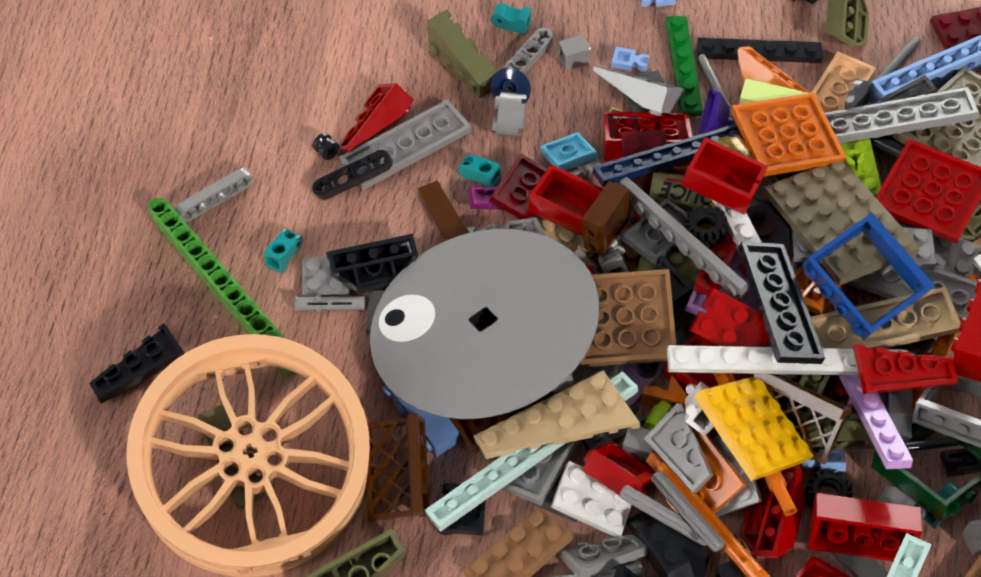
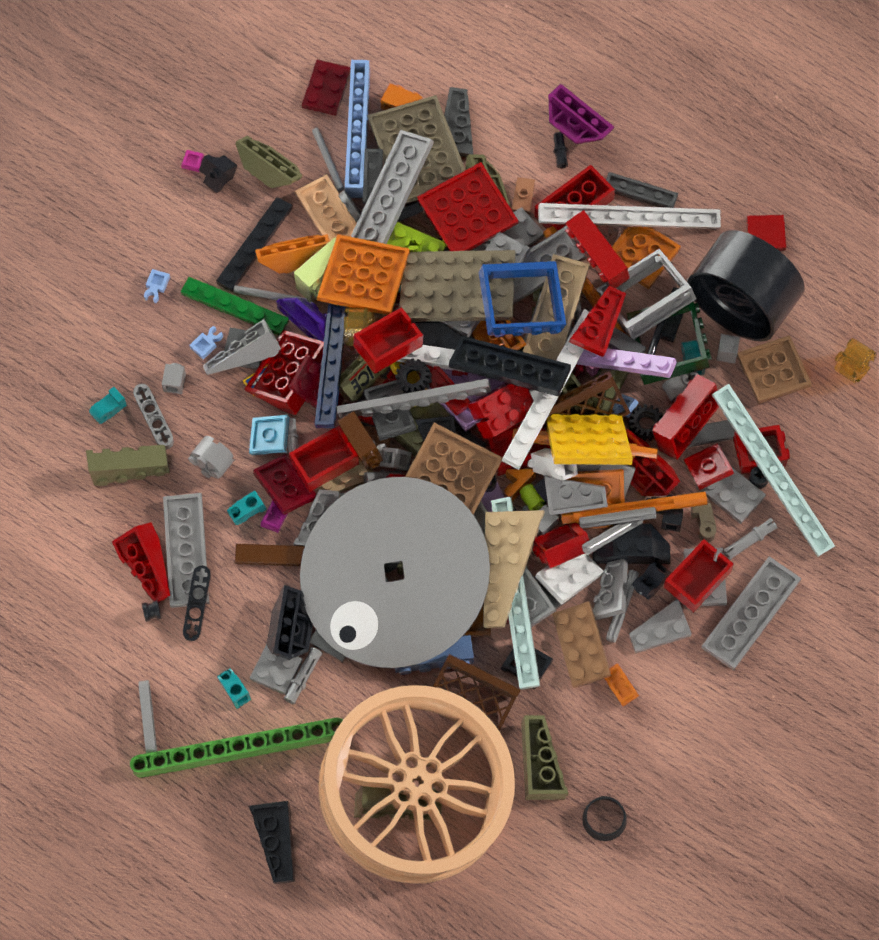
camera: 60 degrees left, 10 degrees up
(511, 79) = (180, 437): dark blue dish -> none

